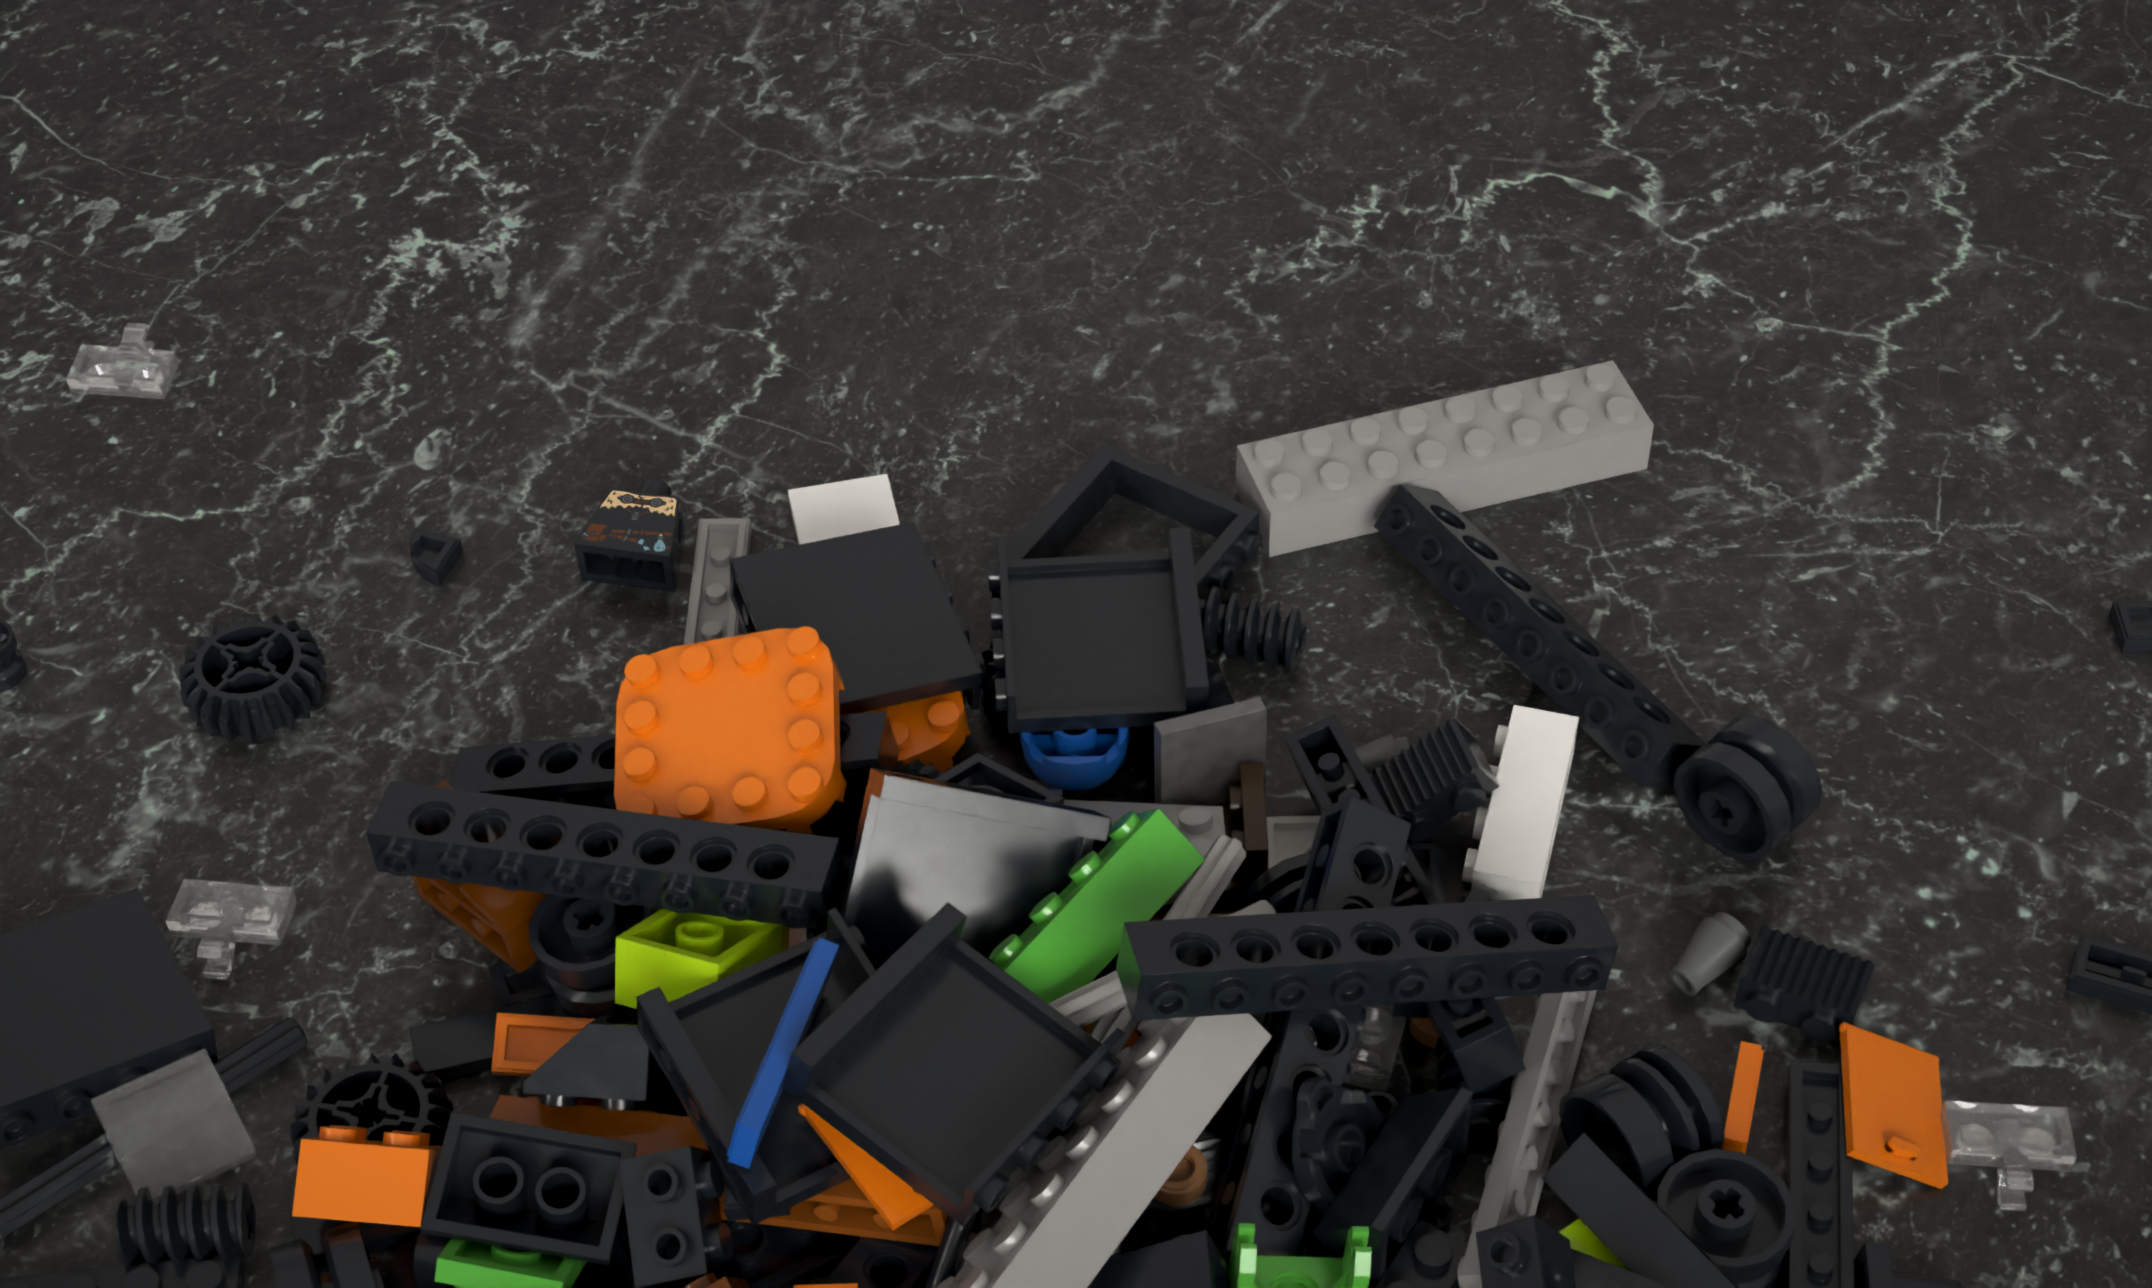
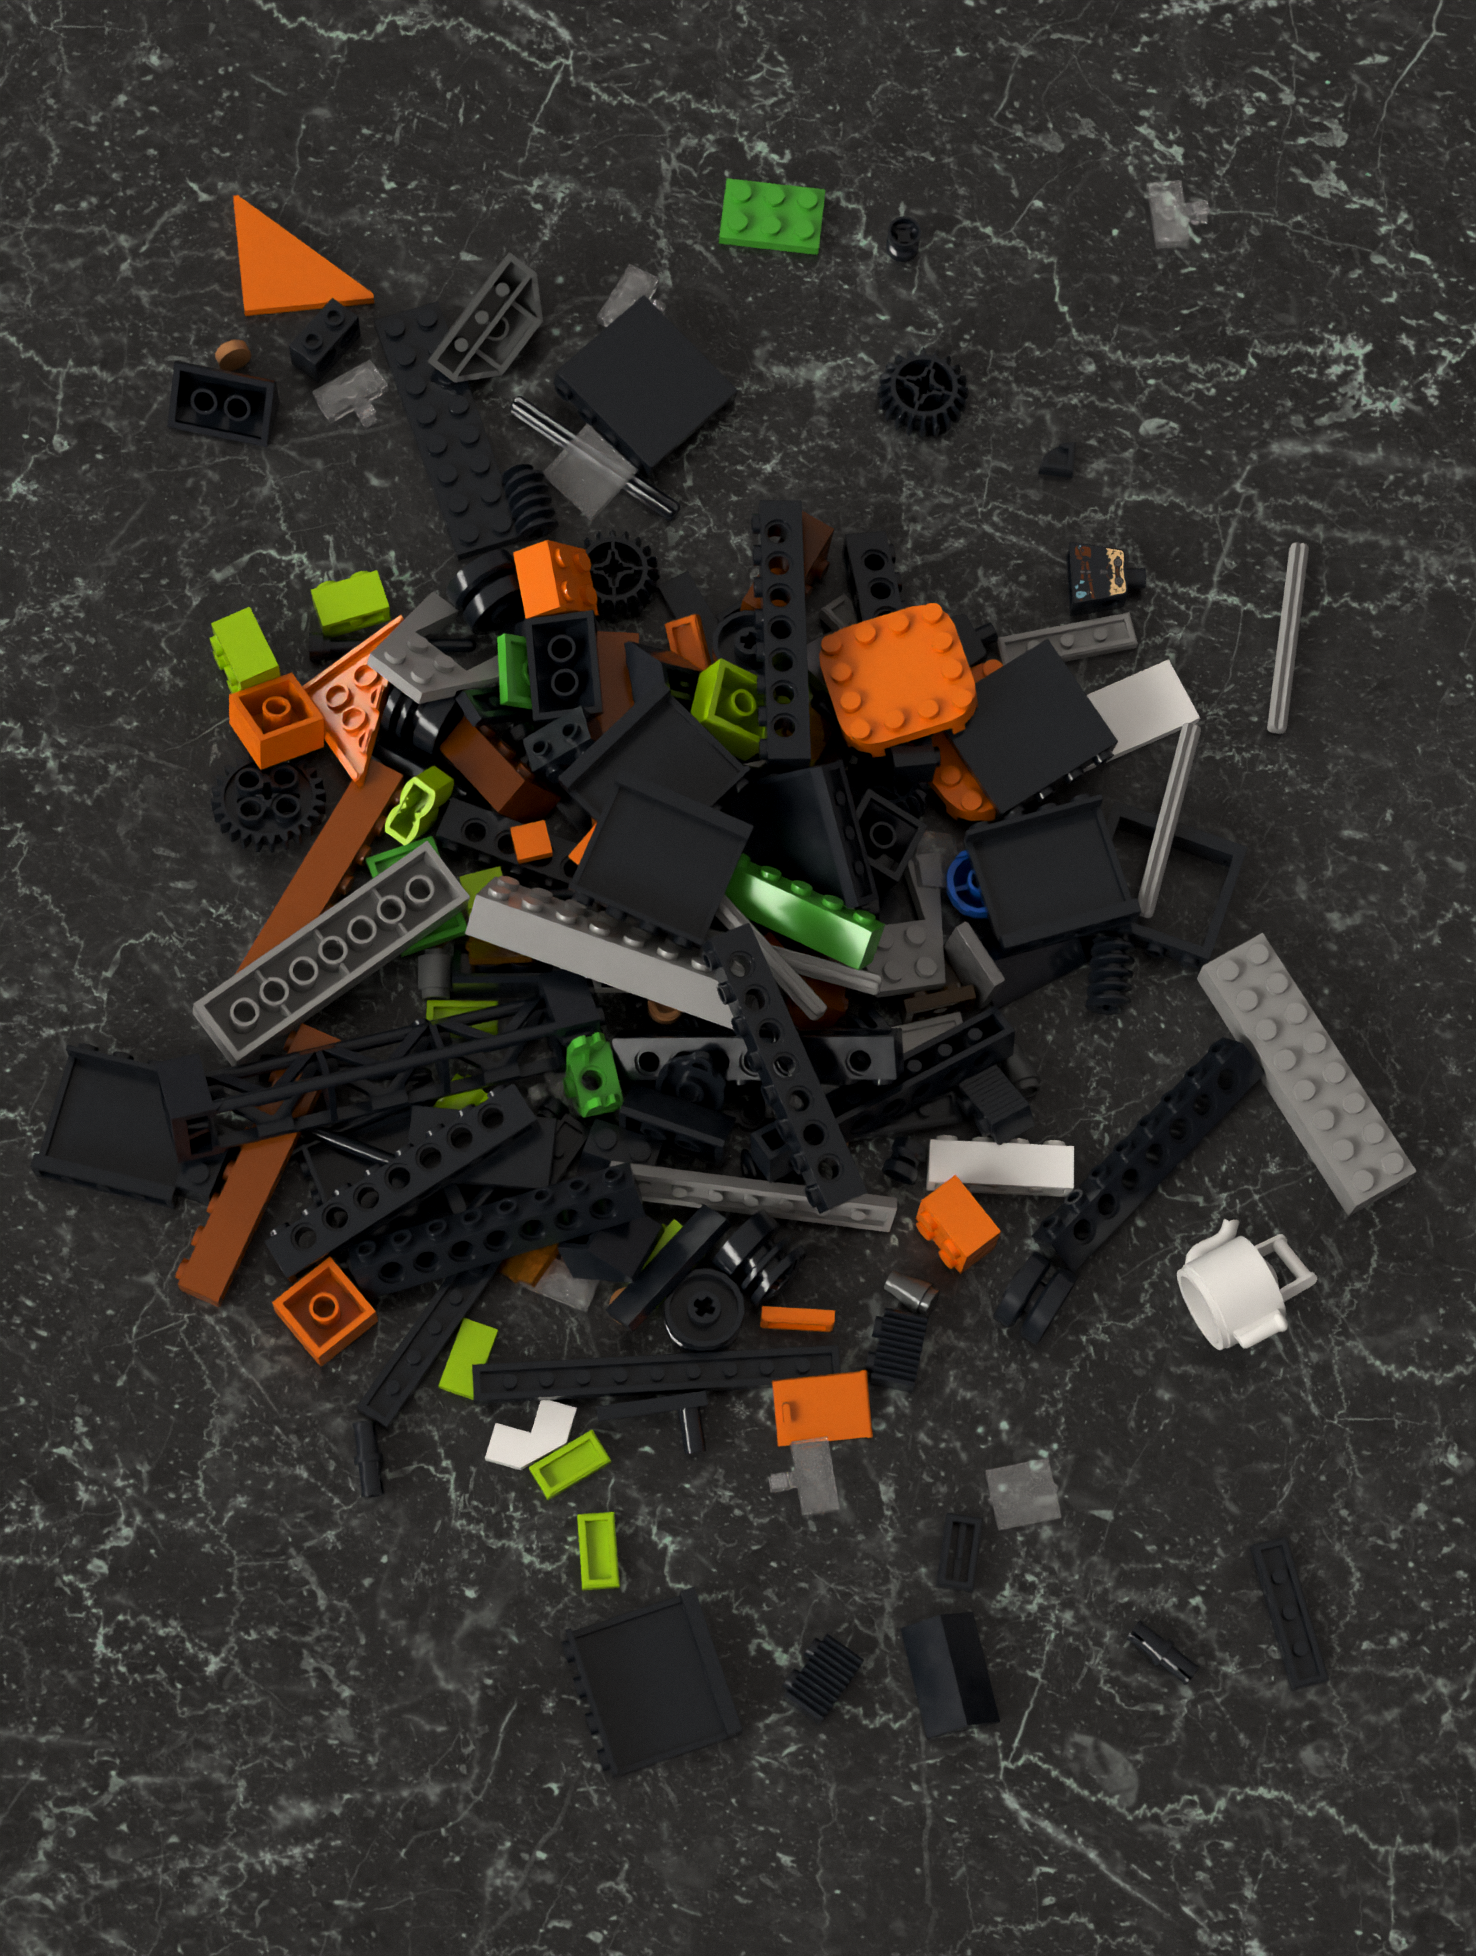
camera: 70 degrees right, 25 degrees up
(229, 914) = (742, 446): clear plate -> none
(787, 1037) = (644, 766): blue tile -> none
(802, 371) = (1288, 638): none -> light grey axle
(1031, 504) = (1168, 819): none -> light grey axle
(1622, 853) = (957, 1225): none -> orange brick
(1762, 564) = (1236, 1290): none -> white piece
(2038, 887) = (1023, 1494): none -> clear piece

